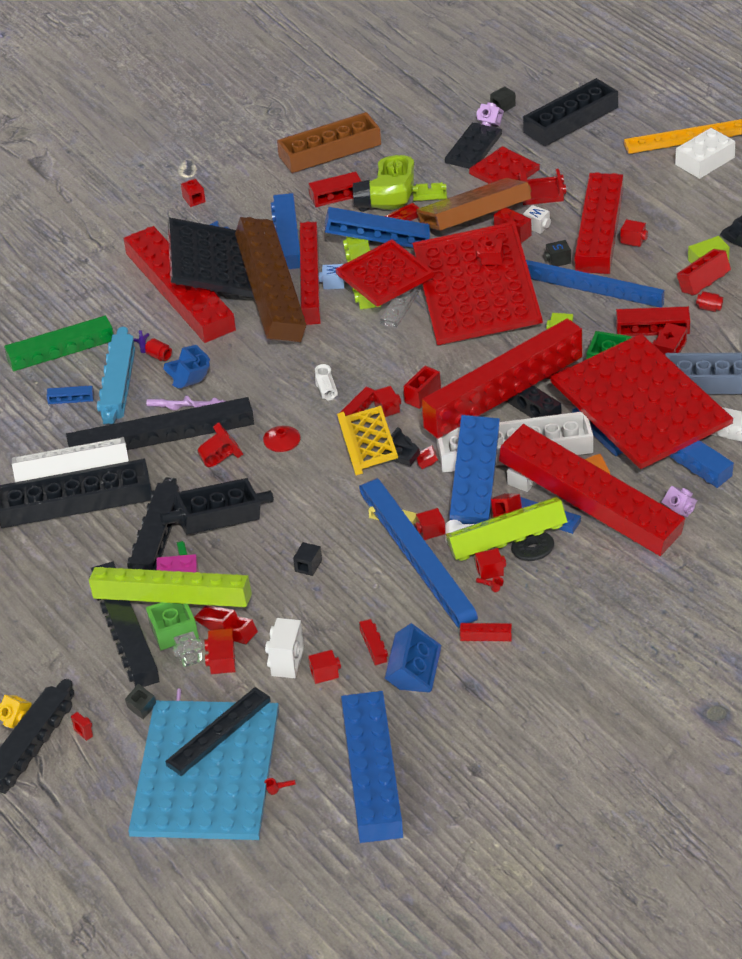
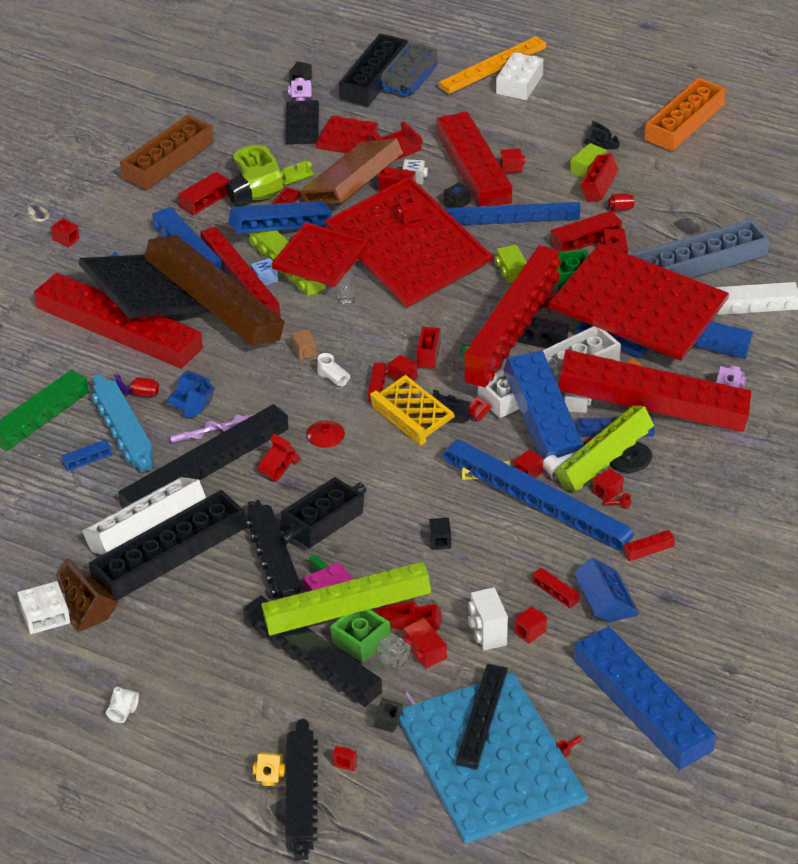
camera: 30 degrees left, 0 degrees up
(318, 351) = (304, 344): none -> medium nougat brick
(505, 503) = (588, 427): red brick -> none
(603, 120) = (409, 69): none -> dark grey piece

